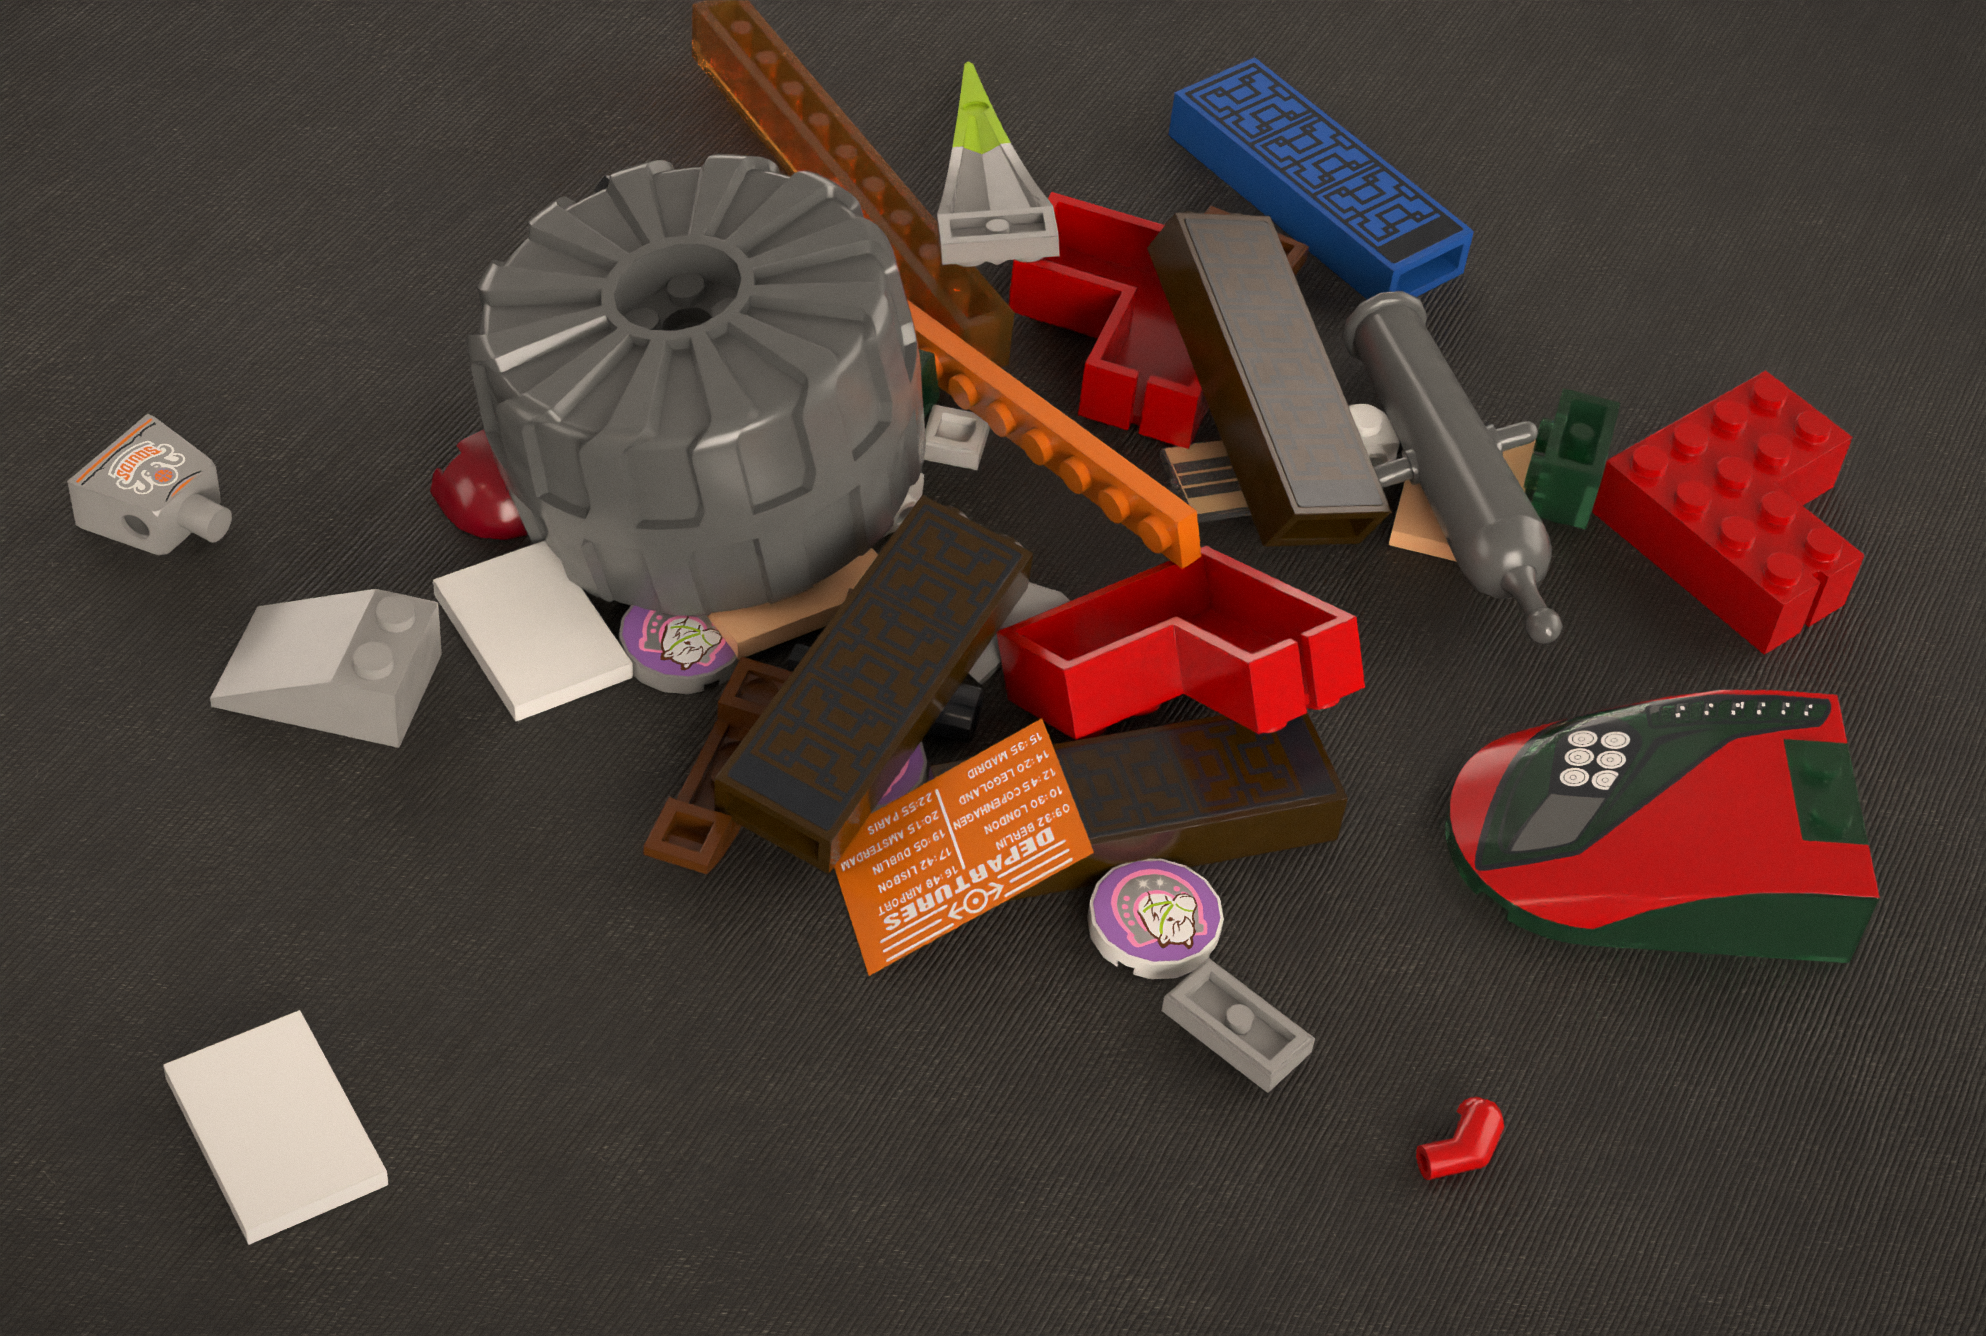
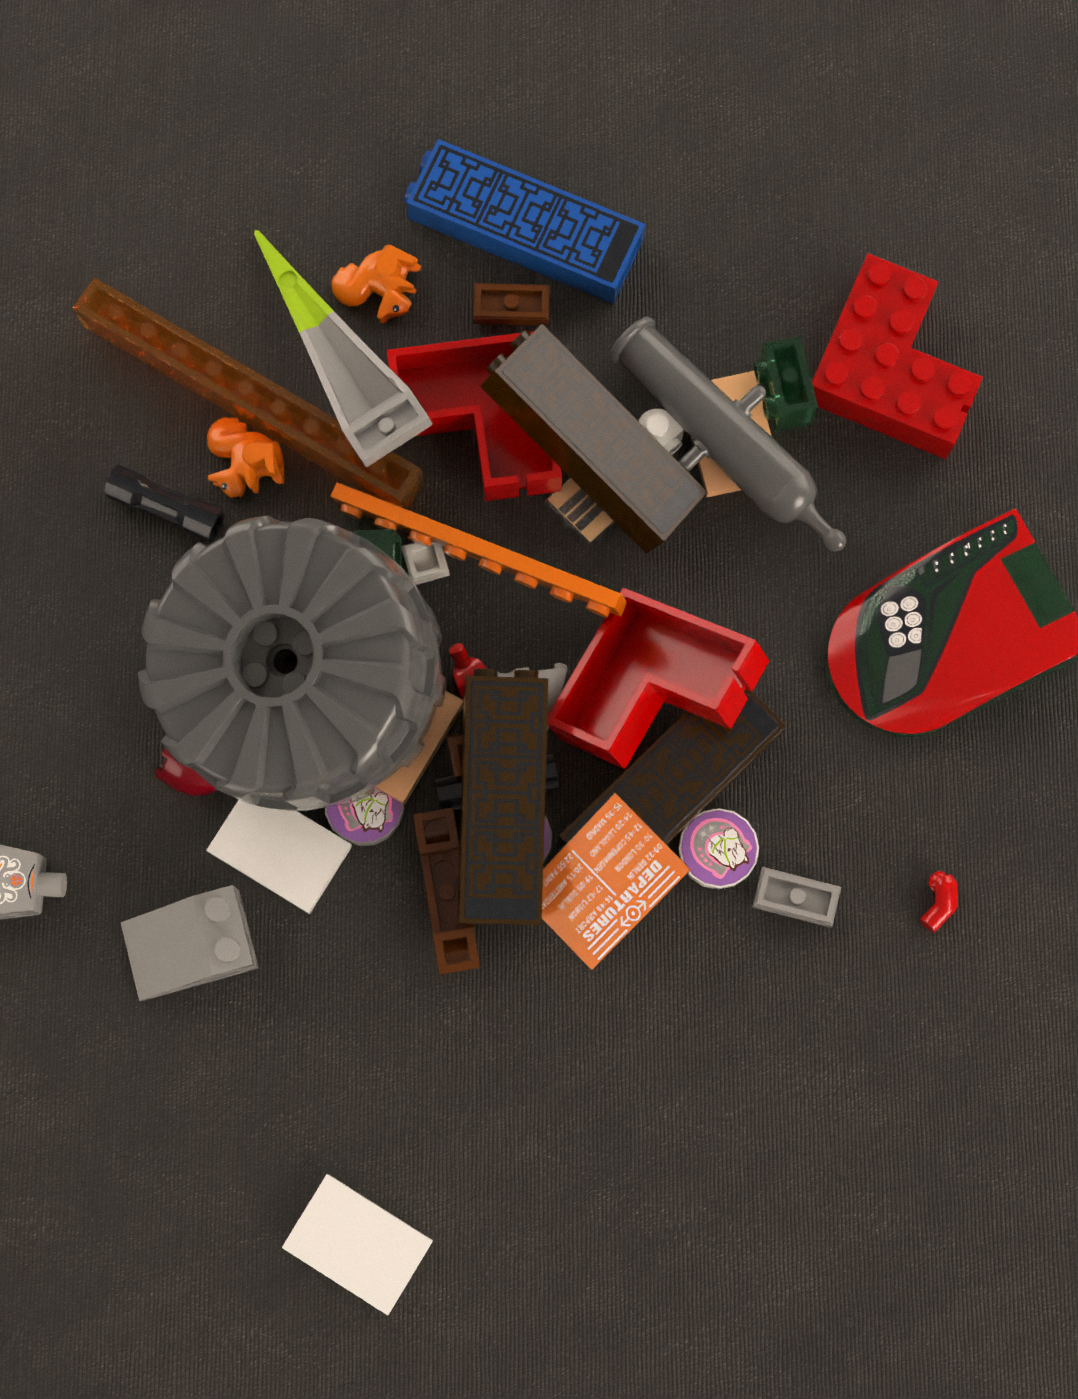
camera: 25 degrees left, 30 degrees up
(1096, 154) = (382, 274): none -> orange animal

